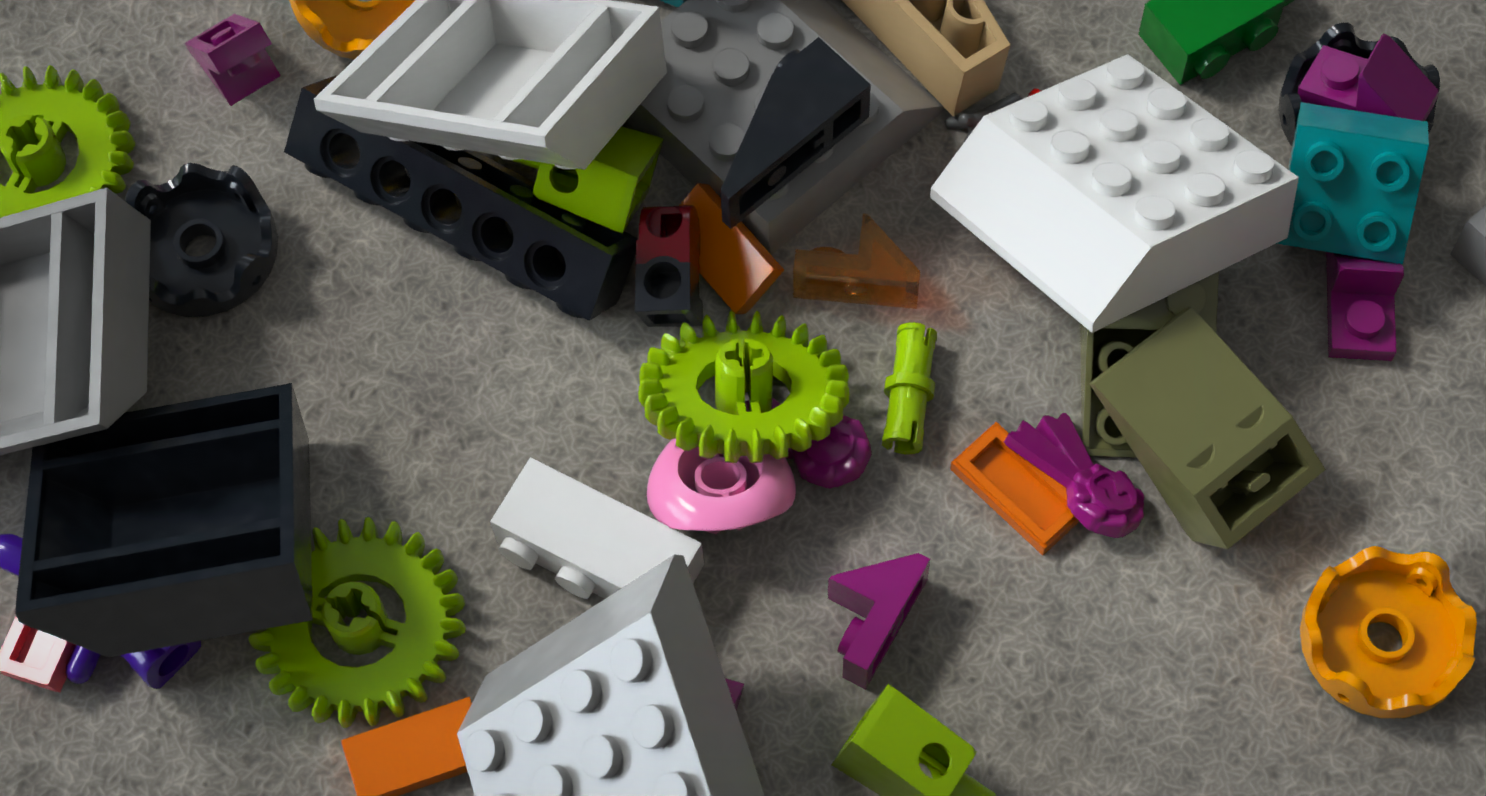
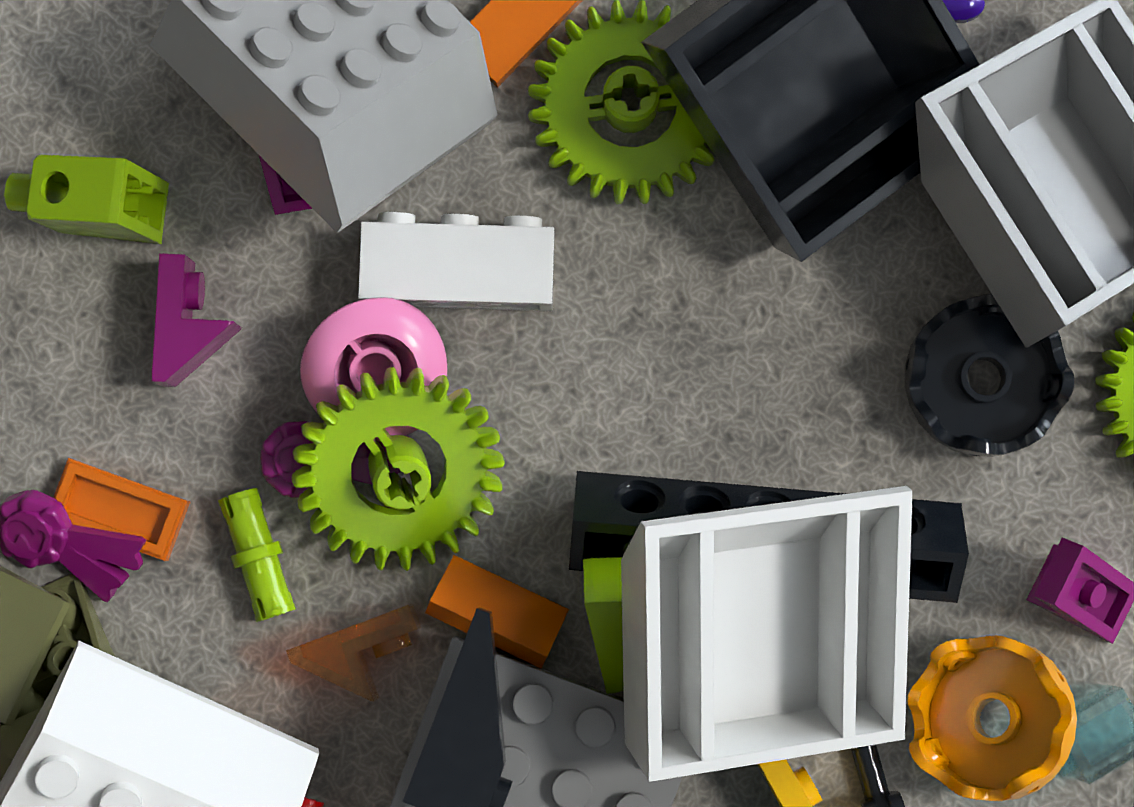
camera: 150 degrees right, 20 degrees up
(668, 267) = (531, 559): leg -> none

